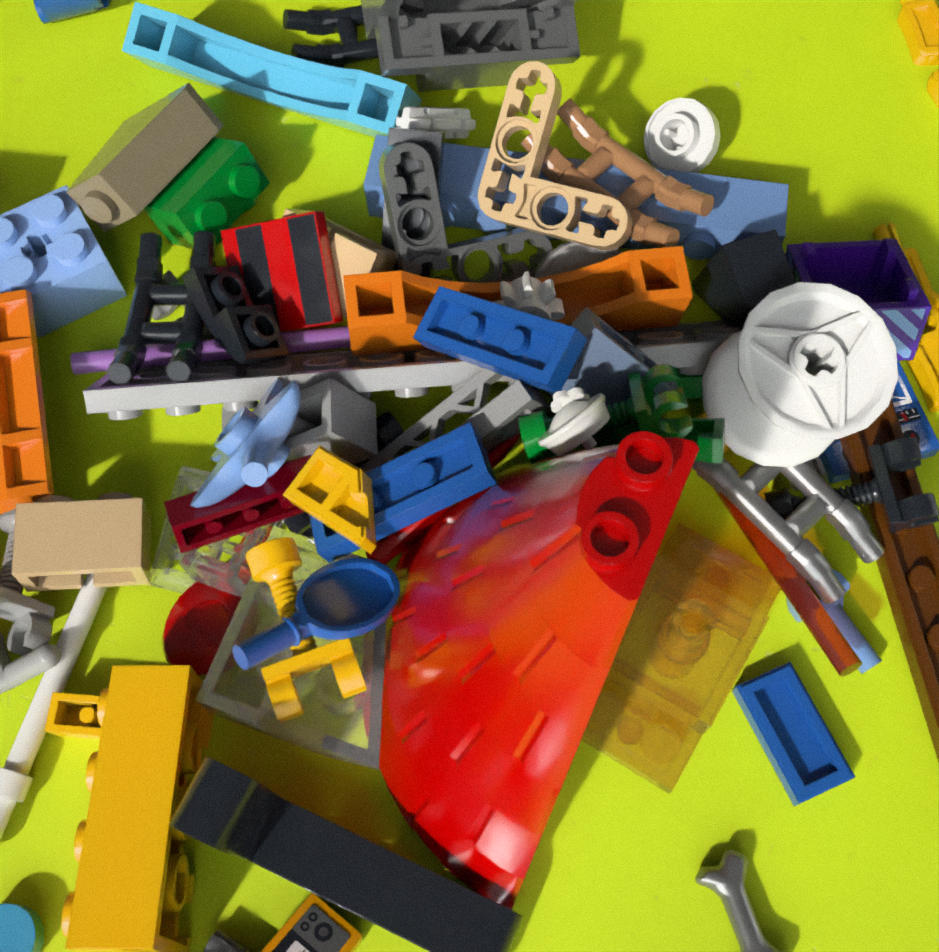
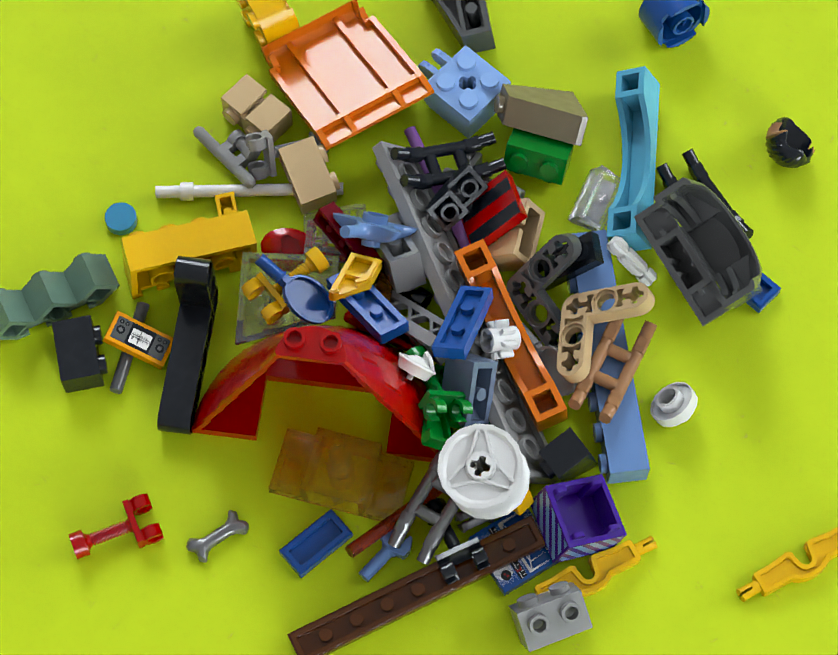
camera: 70 degrees right, 0 degrees up
(307, 154) = (595, 199): none -> clear slope

